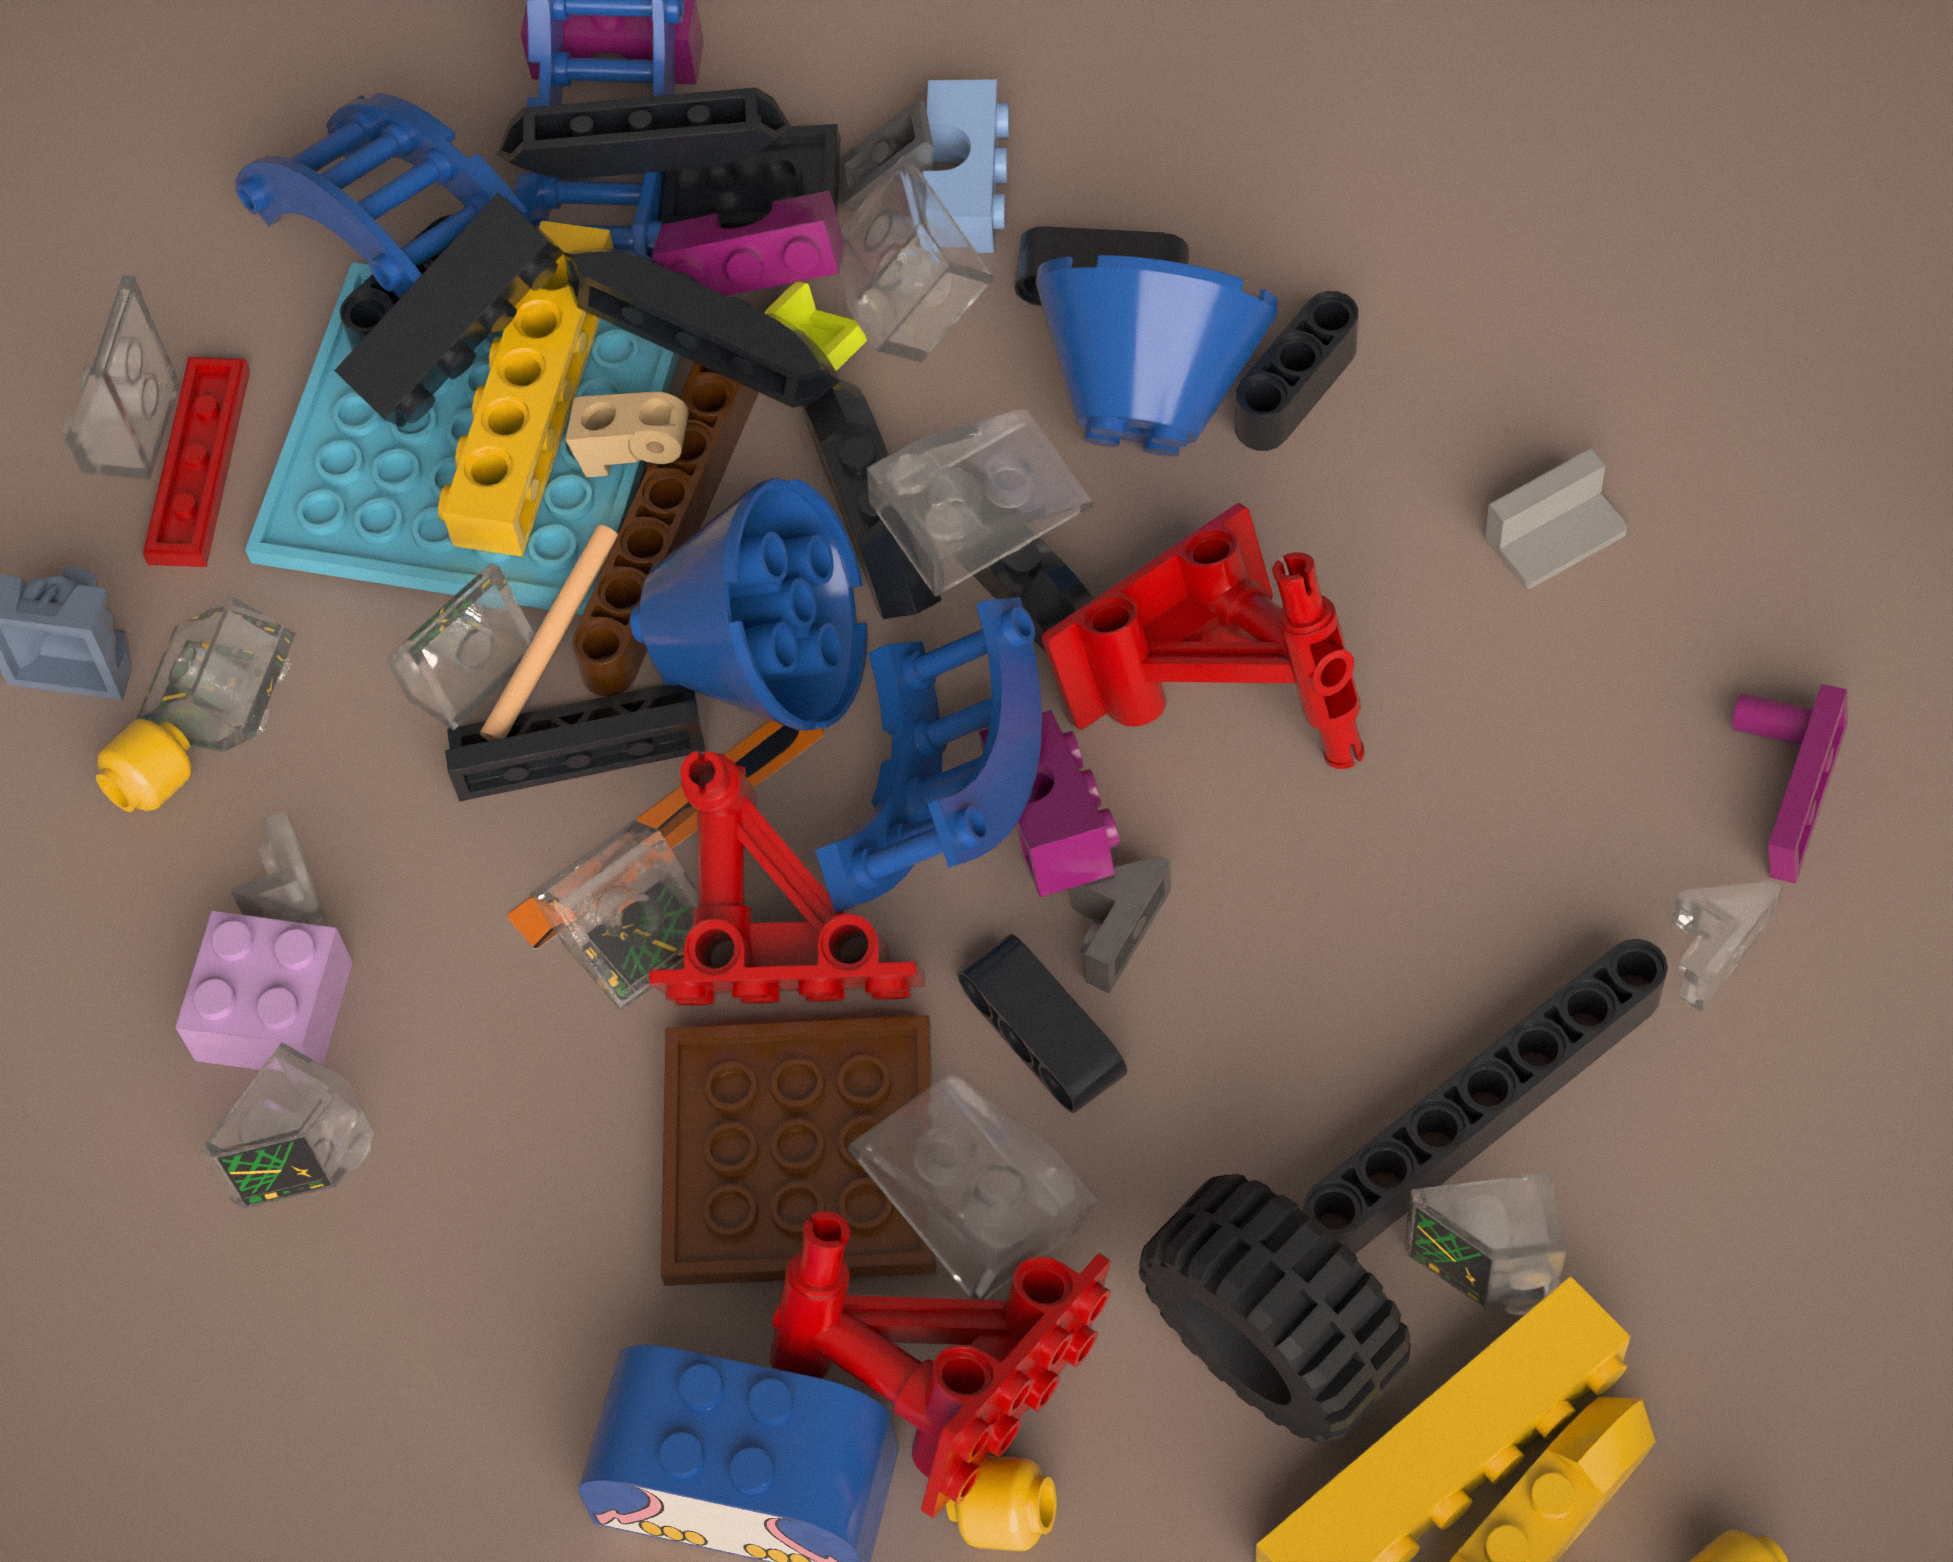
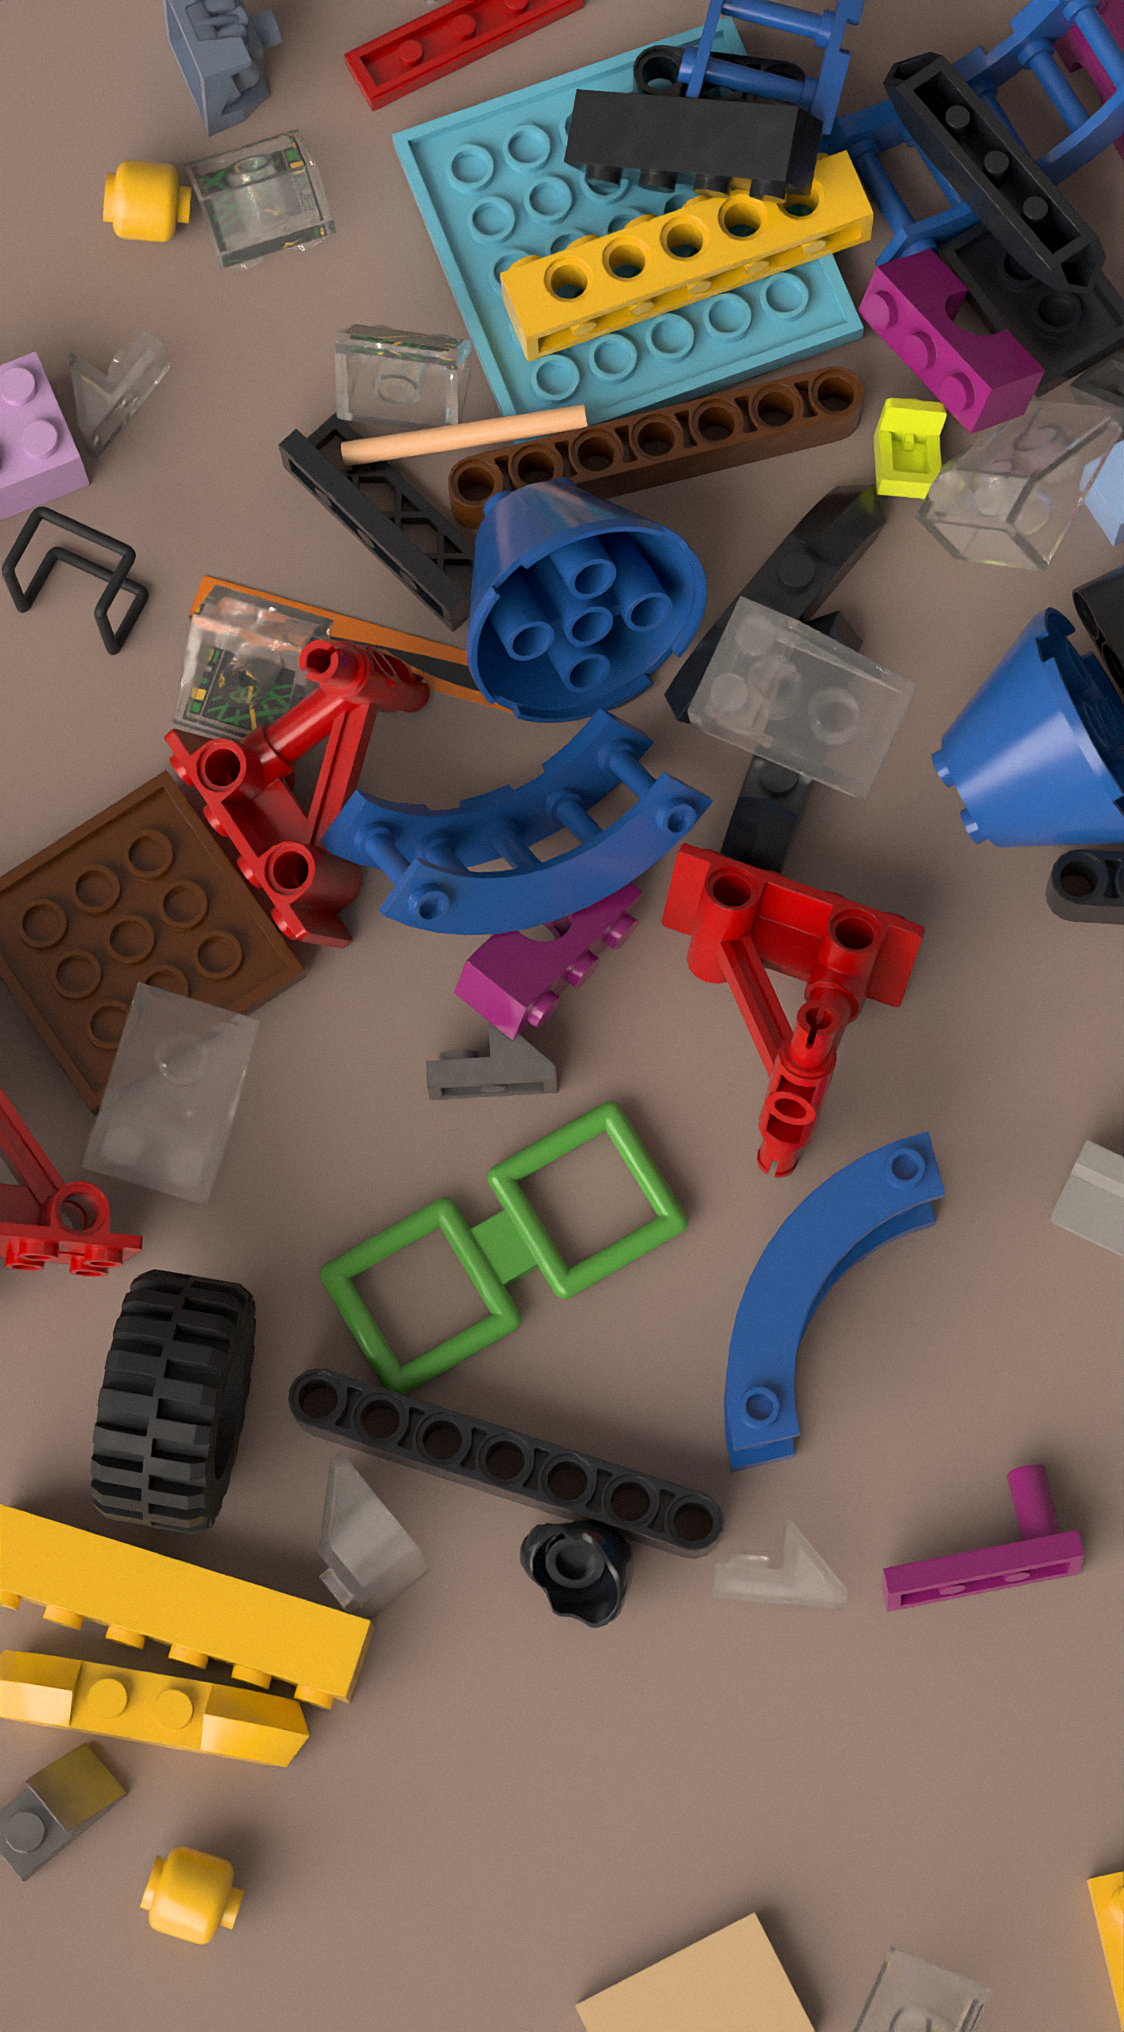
camera: 55 degrees right, 15 degrees up
(492, 973) = (115, 580): none -> black piece
(626, 430) = (683, 365): tan leg -> none
(700, 324) = (838, 432): black brick -> none
(1042, 1023) = (356, 1063): black beam -> none
(1285, 1002) = (504, 1248): none -> bright green bar
(1489, 788) = (823, 1238): none -> blue fence
(1624, 1086) = (580, 1569): none -> black hair

